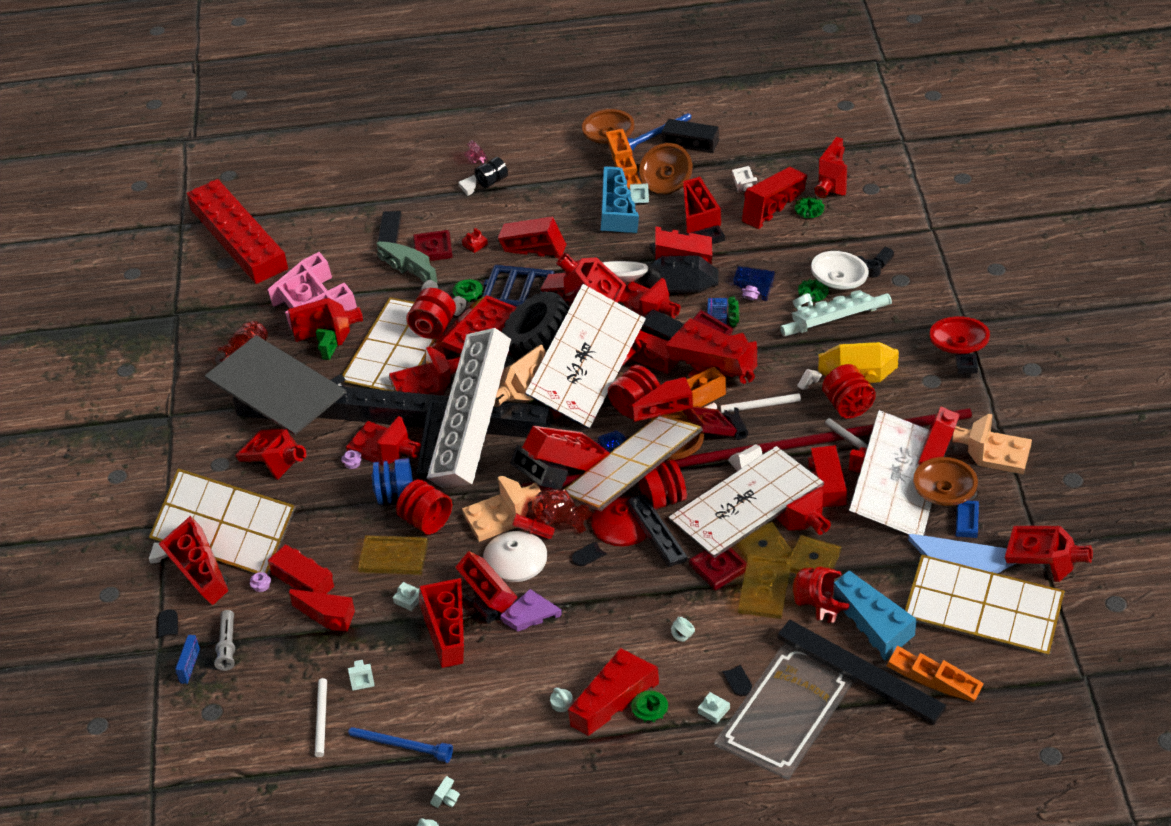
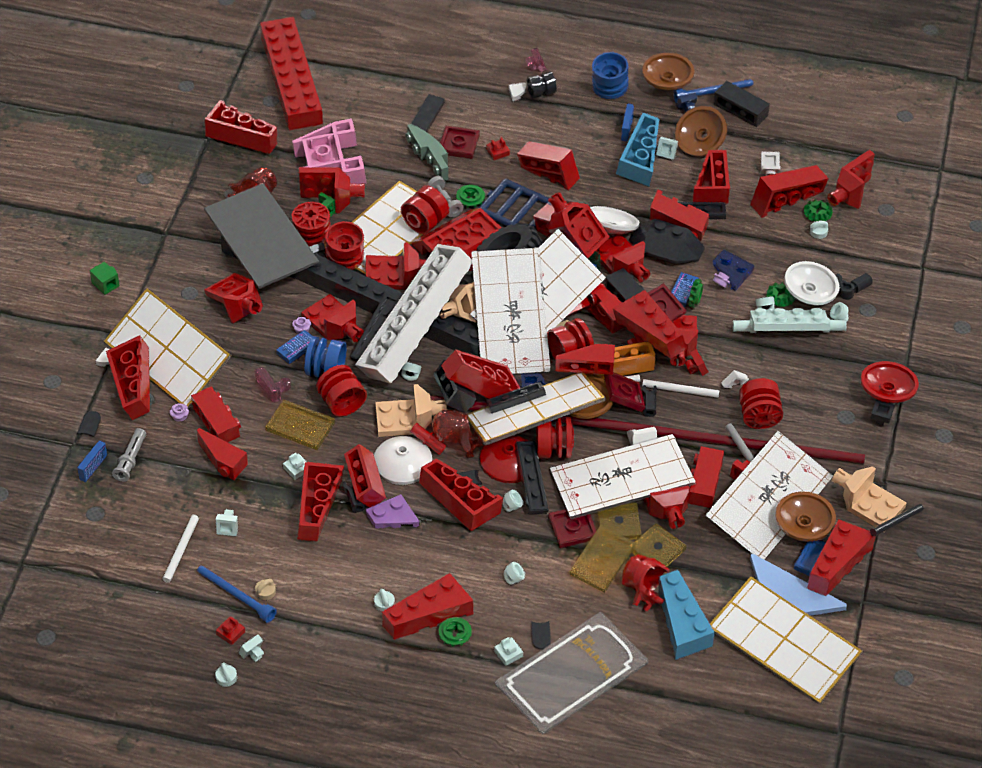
camera: 15 degrees right, 5 degrees up
(124, 475) = (104, 278): none -> green brick
(207, 294) = (240, 129): none -> red wedge
(322, 356) = (311, 222): none -> red wheel
(344, 526) = (272, 389): none -> clear pink piece
(355, 481) = (295, 347): none -> blue tile
(365, 367) = (345, 244): none -> red wheel
(411, 783) = (230, 630): none -> red tile
(430, 729) = (265, 589): none -> tan tile
(485, 464) = (411, 368): none -> light aqua tile
(554, 144) = (610, 75): none -> blue wheel
(565, 375) = (511, 309): none -> clear piece
(590, 182) = (627, 122): none -> blue tile
(591, 570) = (459, 495): none -> red wedge
(606, 458) = (515, 397): none -> black tile
(622, 155) = (667, 108): orange slope -> none
(639, 148) = (686, 102): none -> dark blue tile
(648, 558) = (512, 501): none -> light aqua tile
(765, 375) = (696, 363): none -> red tile
(819, 223) = (819, 229): none -> light aqua tile
(862, 672) = (648, 663): black tile -> none
(872, 359) = (794, 381): yellow wedge -> none
(877, 287) = (839, 312): none -> light aqua tile
(937, 676) = (711, 688): orange slope -> none
(939, 435) = (821, 471): red slope -> none
(997, 503) = (840, 554): none -> red wedge
(1033, 457) = (896, 520): none -> black bar
(1046, 546) = (864, 606): red plate -> none

